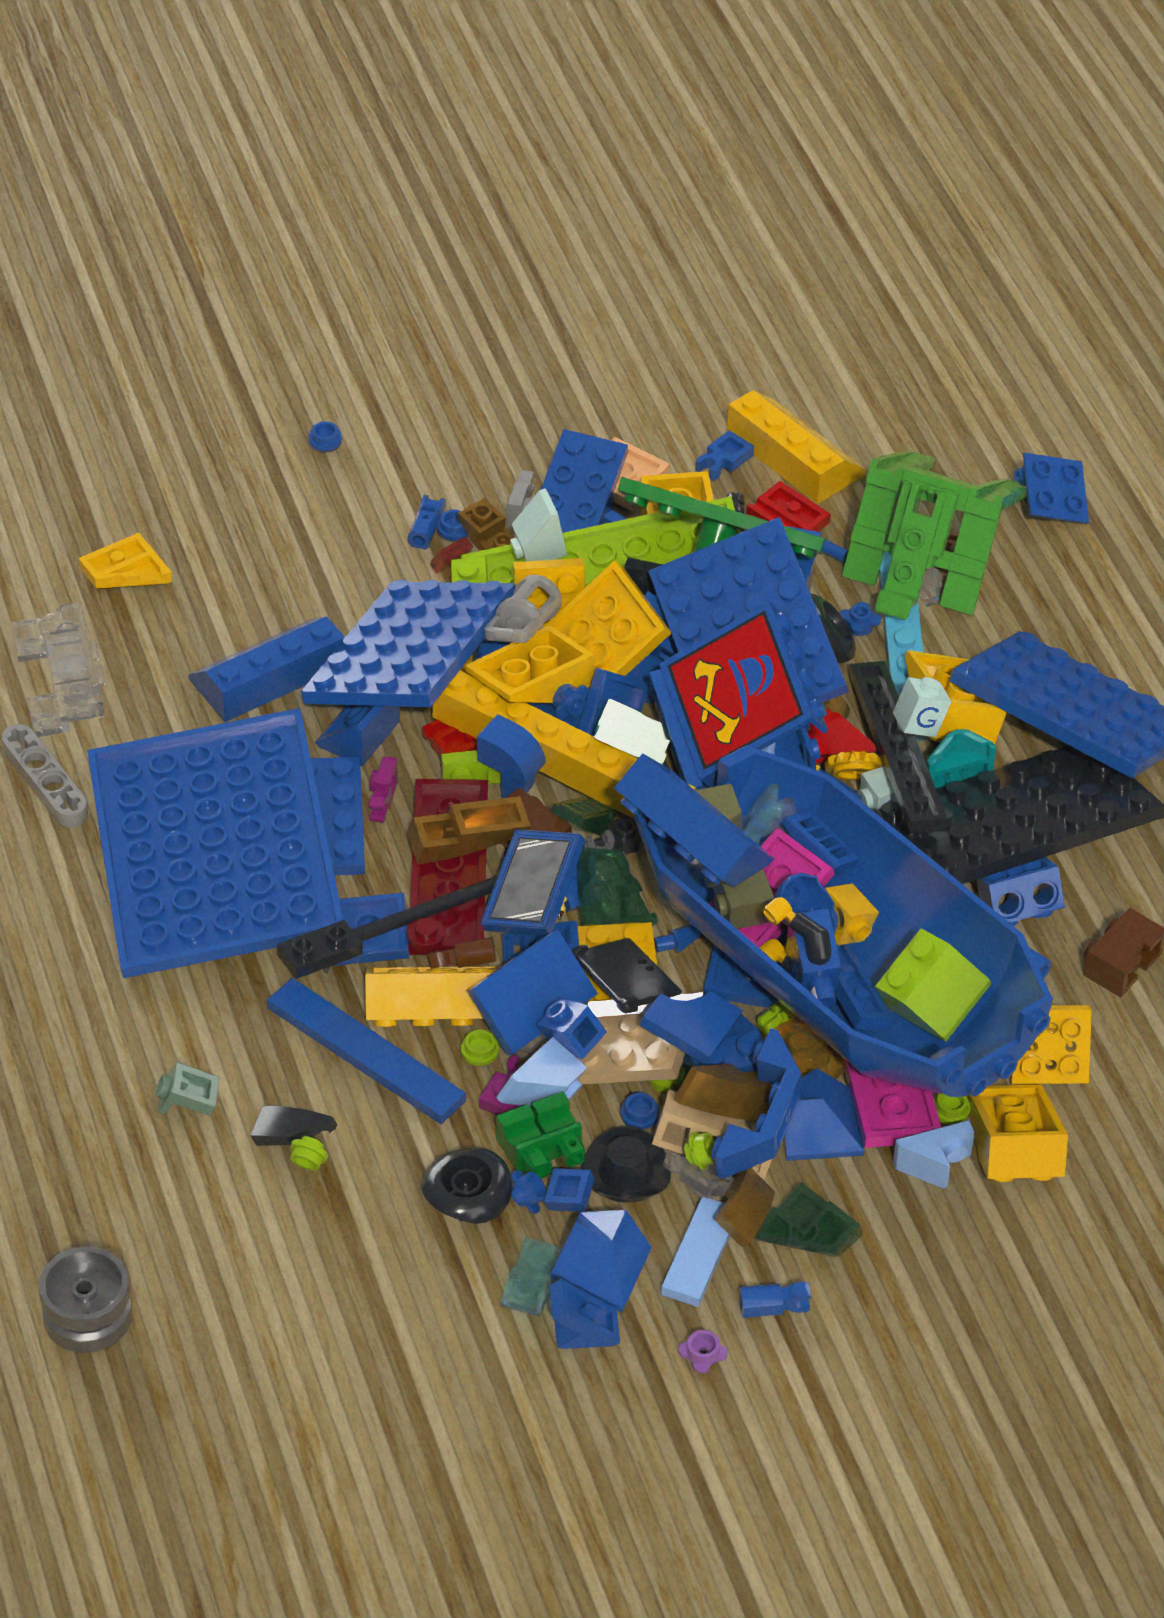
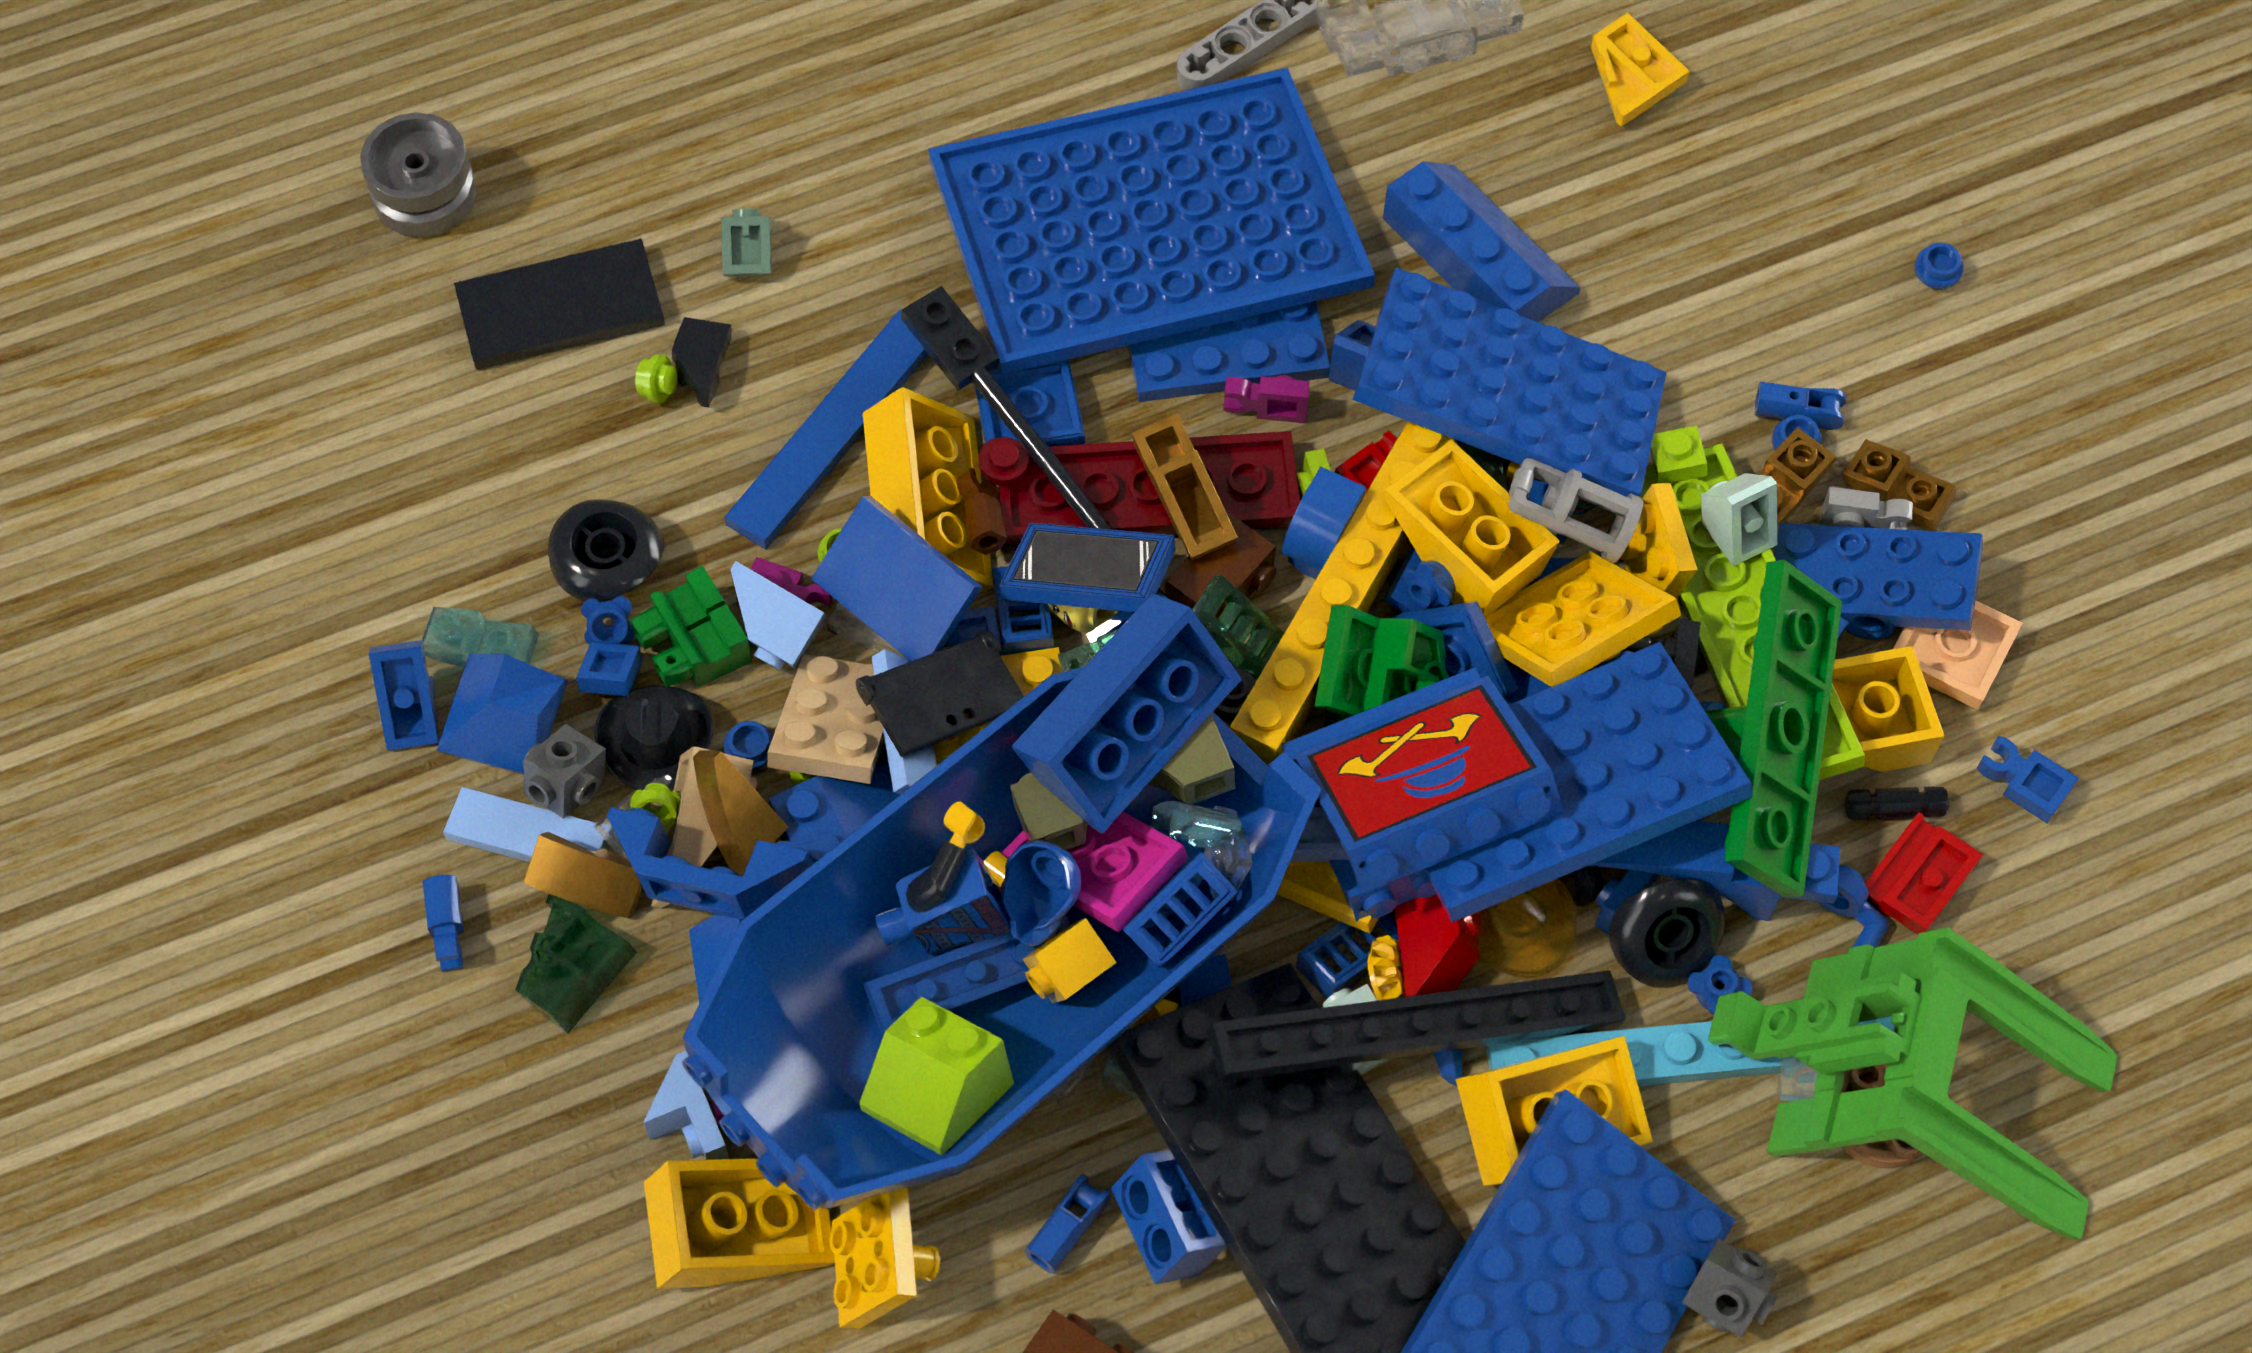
camera: 85 degrees right, 15 degrees up
(219, 1222) = (559, 304): none -> black tile
(454, 551) = (1728, 435): clear red tile -> none
(496, 483) = (1890, 474): none -> pearl gold slope
(572, 1026) = (838, 632): blue brick -> none
(661, 1212) = (564, 771): none -> dark grey brick
(692, 1025) = (833, 769): blue tile -> none
(703, 1341) = (362, 830): medium lavender plate -> none
(792, 447) = (2078, 877): yellow slope -> none
(922, 706) = (1477, 1045): light aqua brick -> none
(960, 757) = (1417, 1118): teal slope -> none
(1054, 487) = (2059, 1264): blue hinge -> none
(1070, 630) = (1732, 1289): none -> dark grey brick

